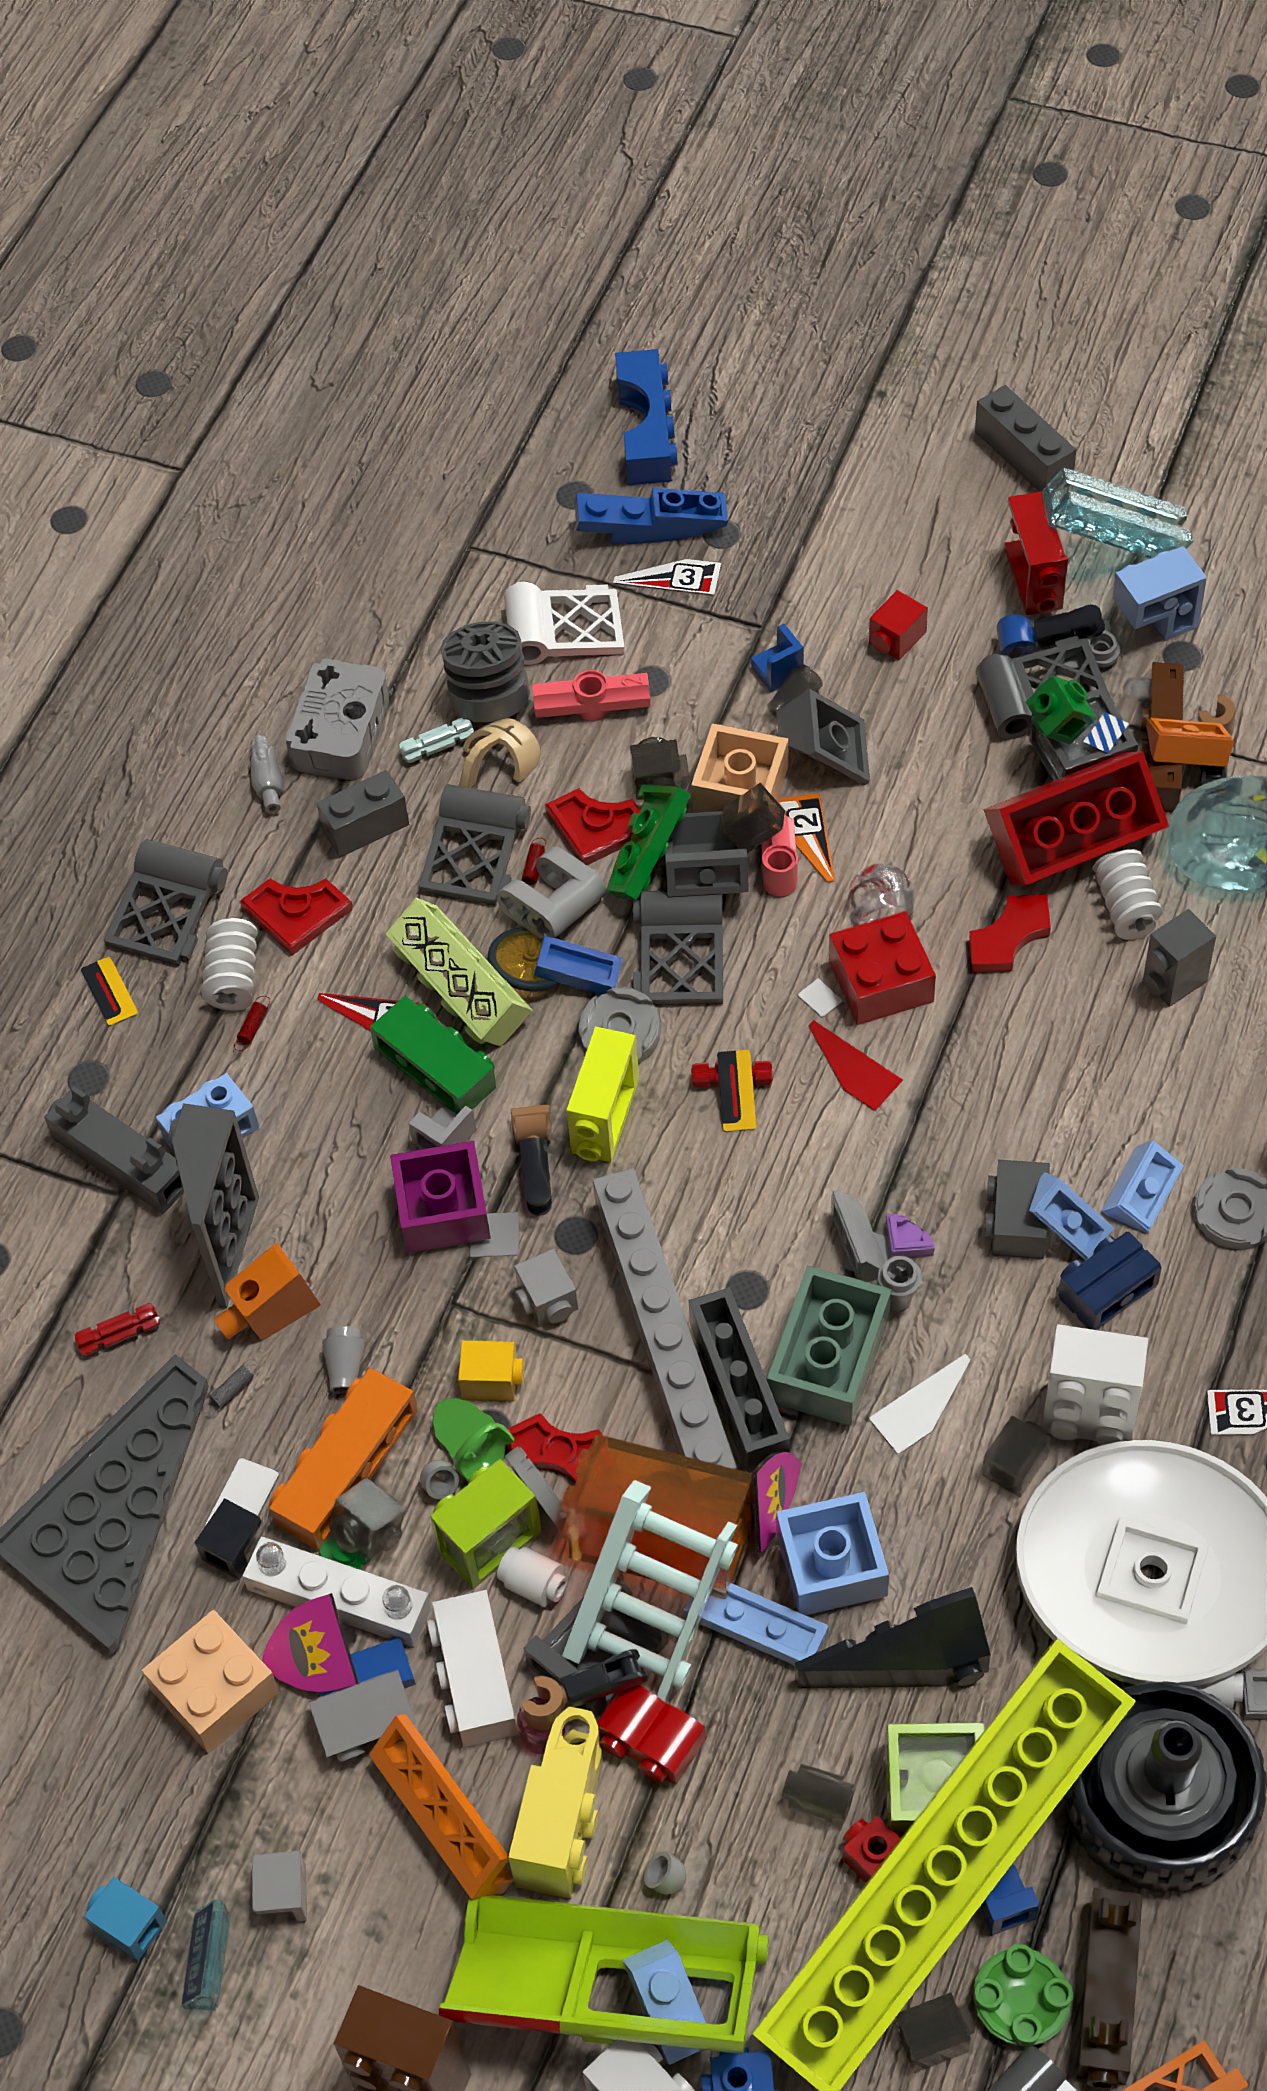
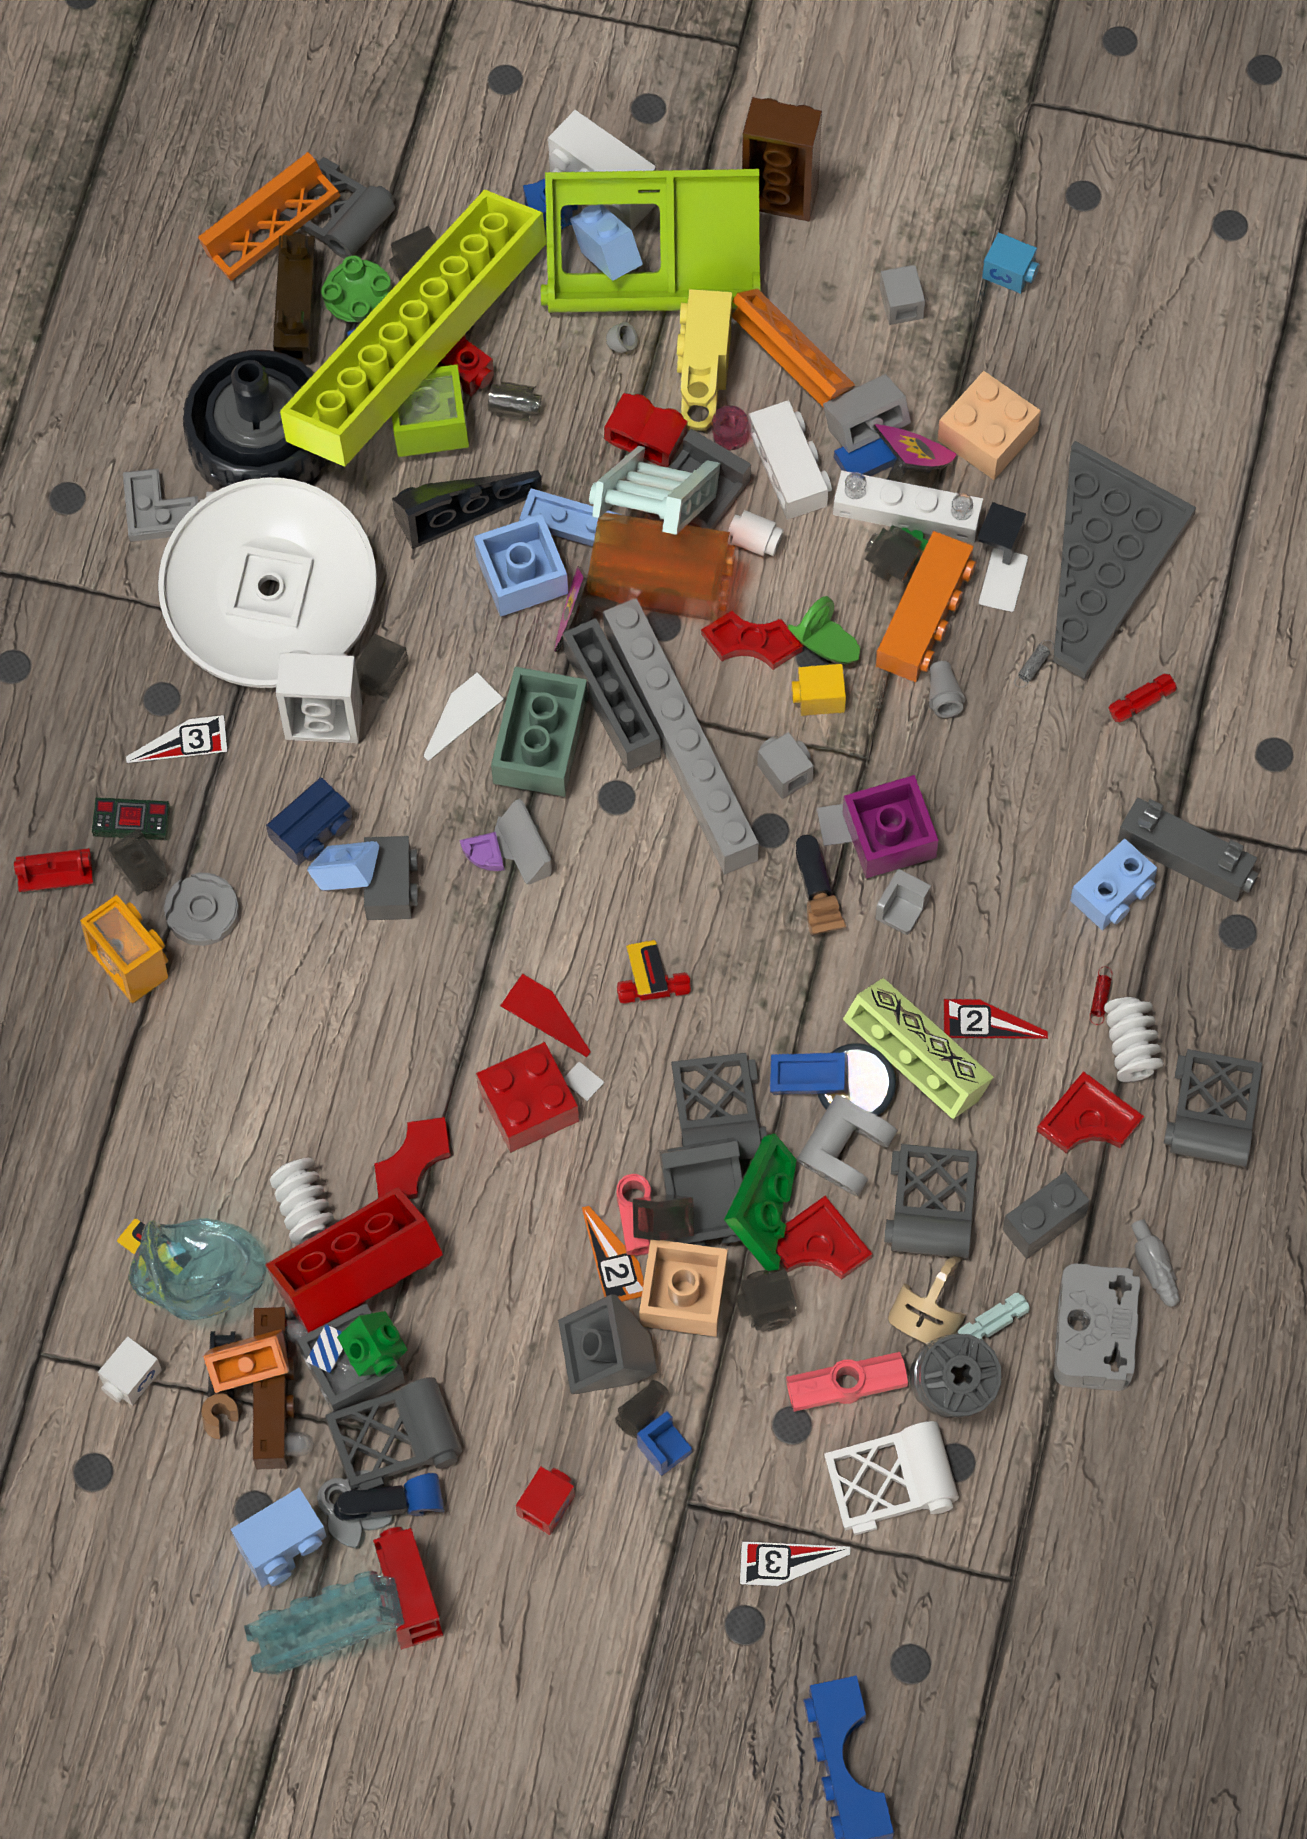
camera: 170 degrees right, 10 degrees up
(109, 990) = (1244, 1020): sticker -> none
(206, 1957) = (946, 250): clear light blue slope -> none
(216, 1188) = (1083, 767): dark grey slope -> none
(266, 1296) = (1017, 724): orange torso -> none
(433, 1055) = (924, 967): green brick -> none
(435, 1486) = (846, 602): light grey hinge -> none
(485, 1521) = (797, 552): lime piece -> none
(530, 873) = (872, 1190): red piece -> none
(538, 1485) = (763, 584): light grey tile -> none
(582, 1688) = (725, 414): black piece -> none
(602, 1094) = (763, 929): neon yellow window -> none
(625, 1012) = (761, 1022): light grey tile -> none
(661, 518) = (821, 1622): blue slope -> none
(880, 892) = (536, 1171): clear helmet -> none
(903, 1278) = (486, 789): light grey cone -> none
(1022, 437) = (427, 1762): dark grey brick -> none
(1143, 1186) = (284, 921): light blue slope -> none
(1178, 957) = (255, 1119): dark grey brick -> none

